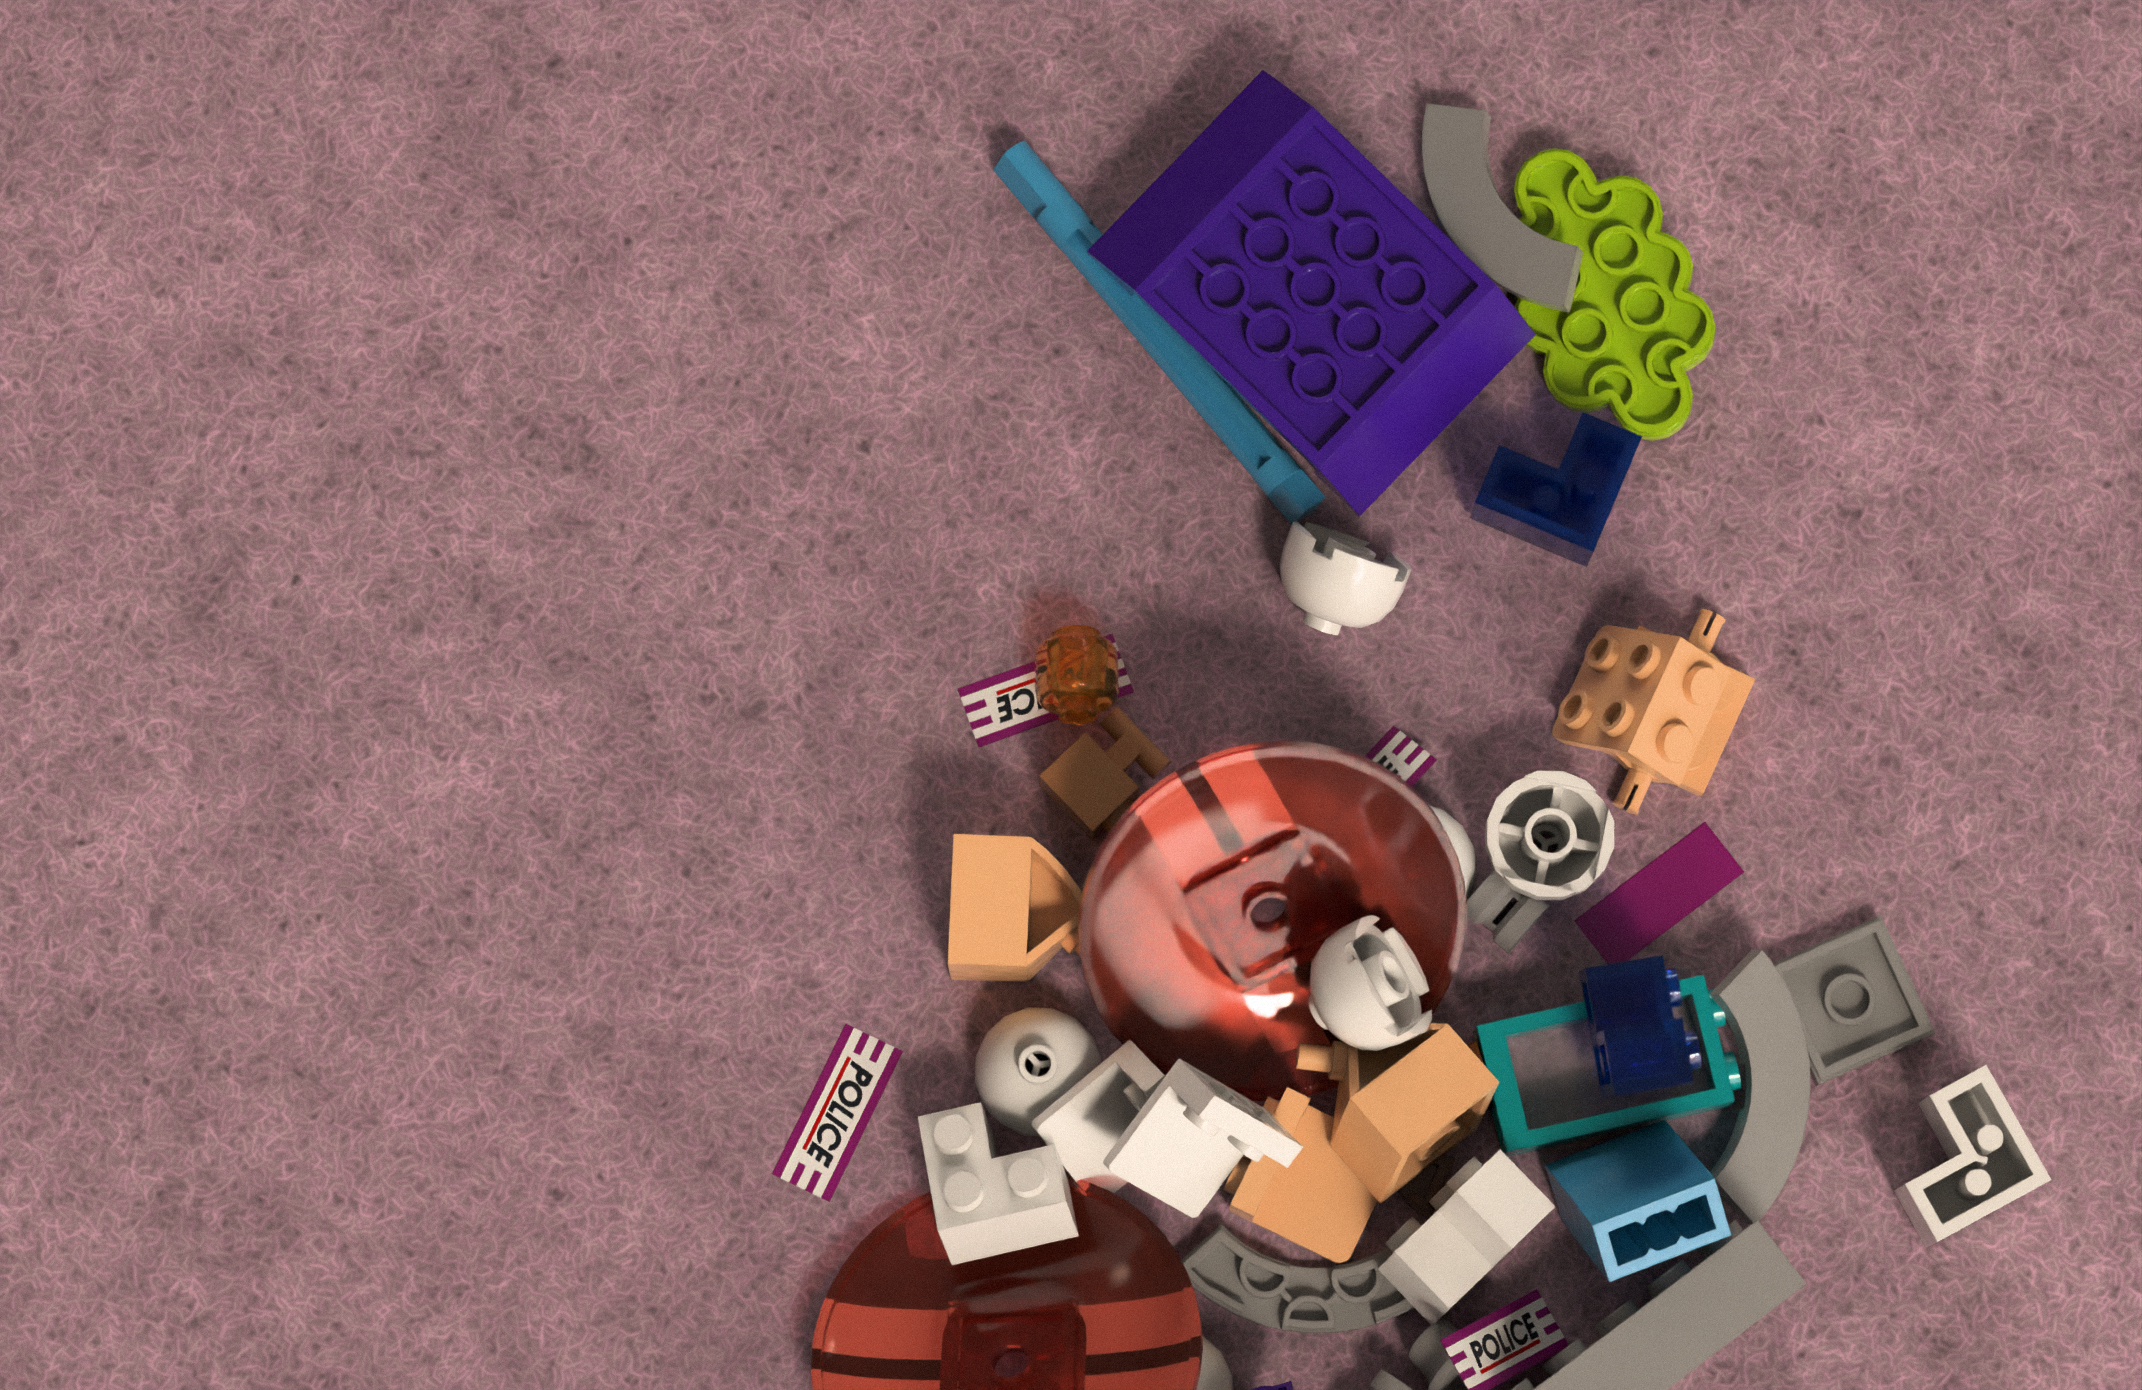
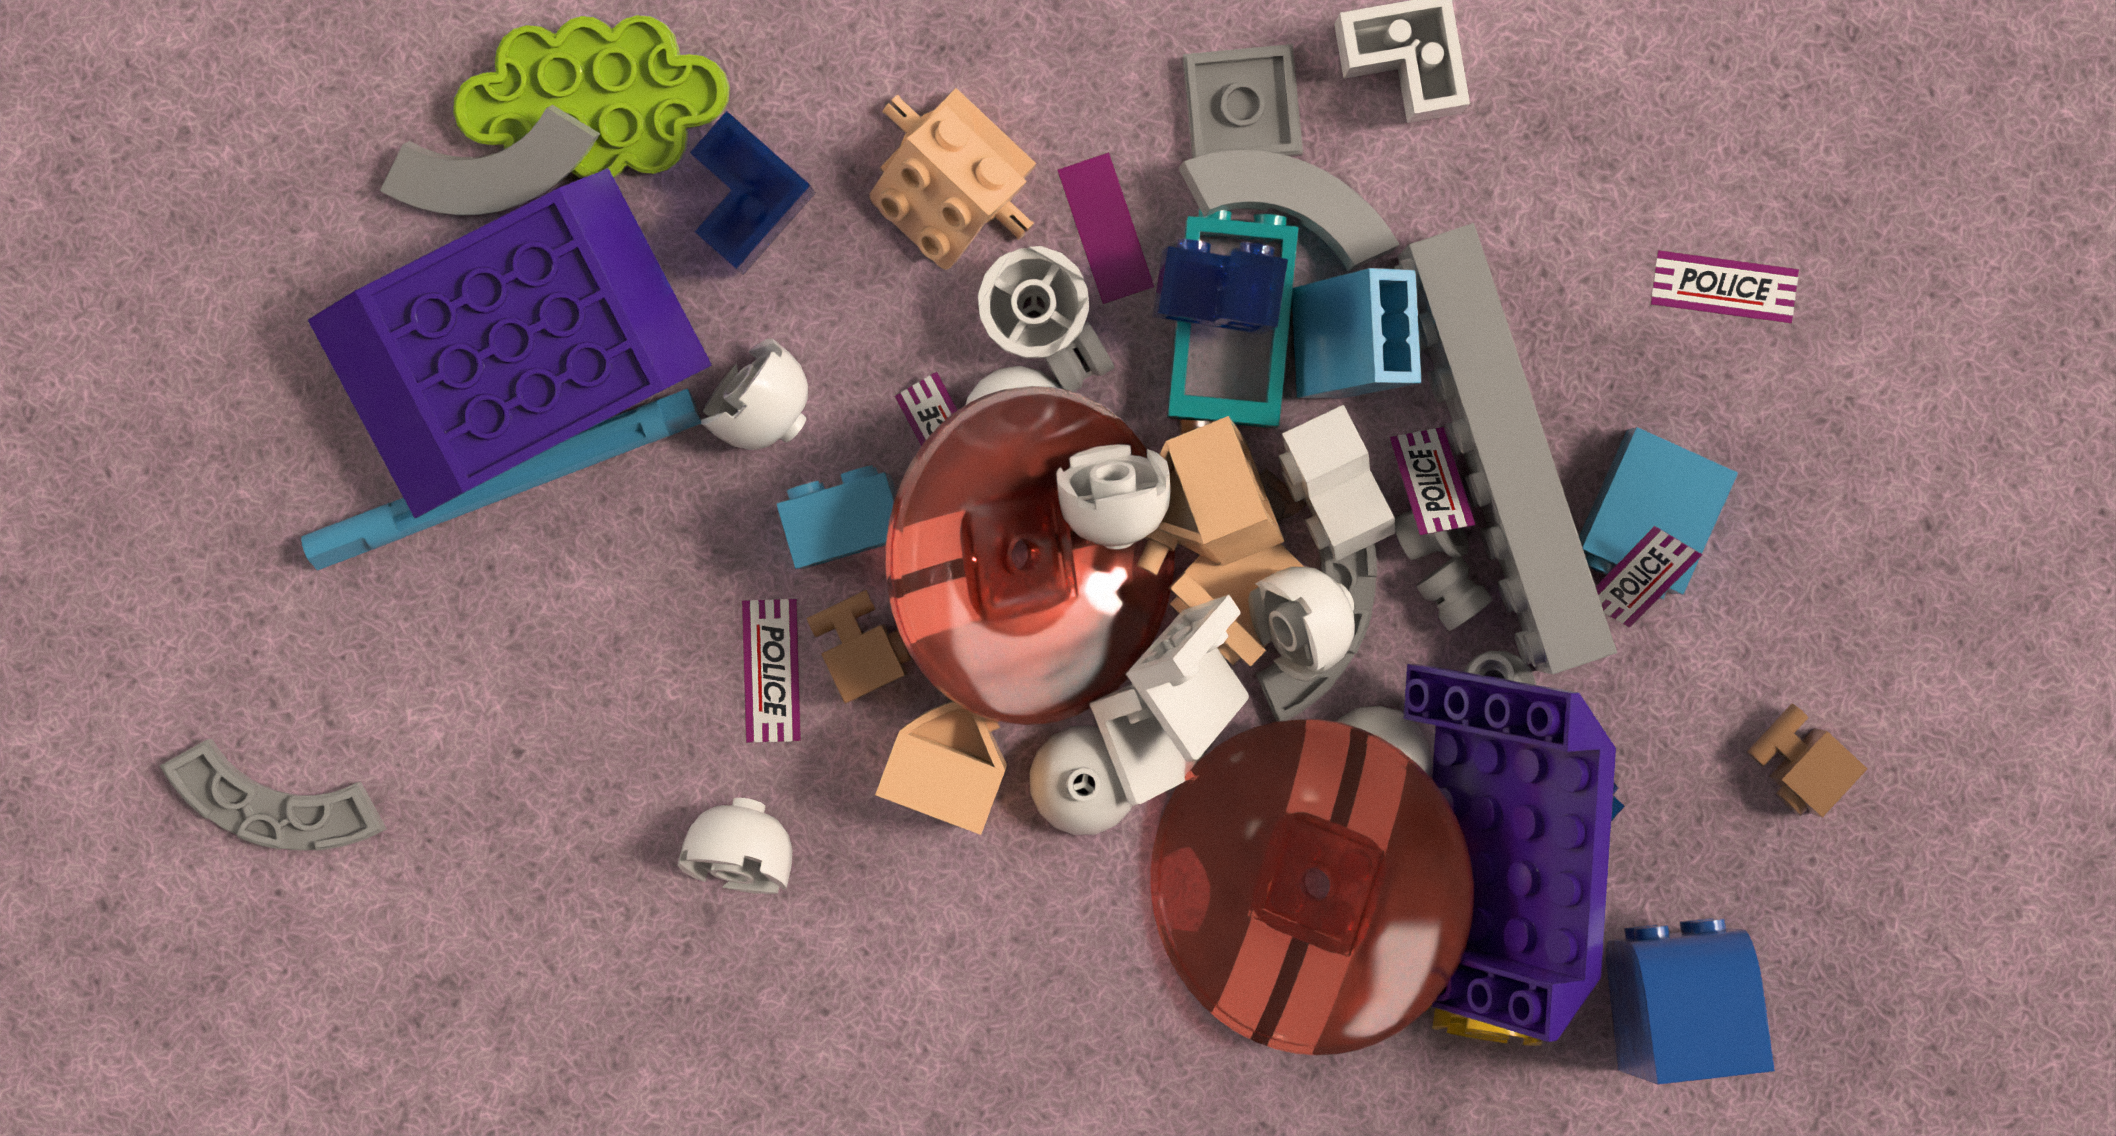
camera: 80 degrees left, 10 degrees up
(709, 203) = (268, 815): none -> light grey tile
(837, 1112) = (1061, 952): sticker -> none
(842, 714) = (739, 847): none -> white cylinder
(991, 1201) = (1179, 863): white brick -> none
(1076, 674) = (768, 643): clear orange head -> none
(1234, 695) = (837, 520): none -> dark azure brick
(1304, 1250) = (1305, 618): none -> white cylinder

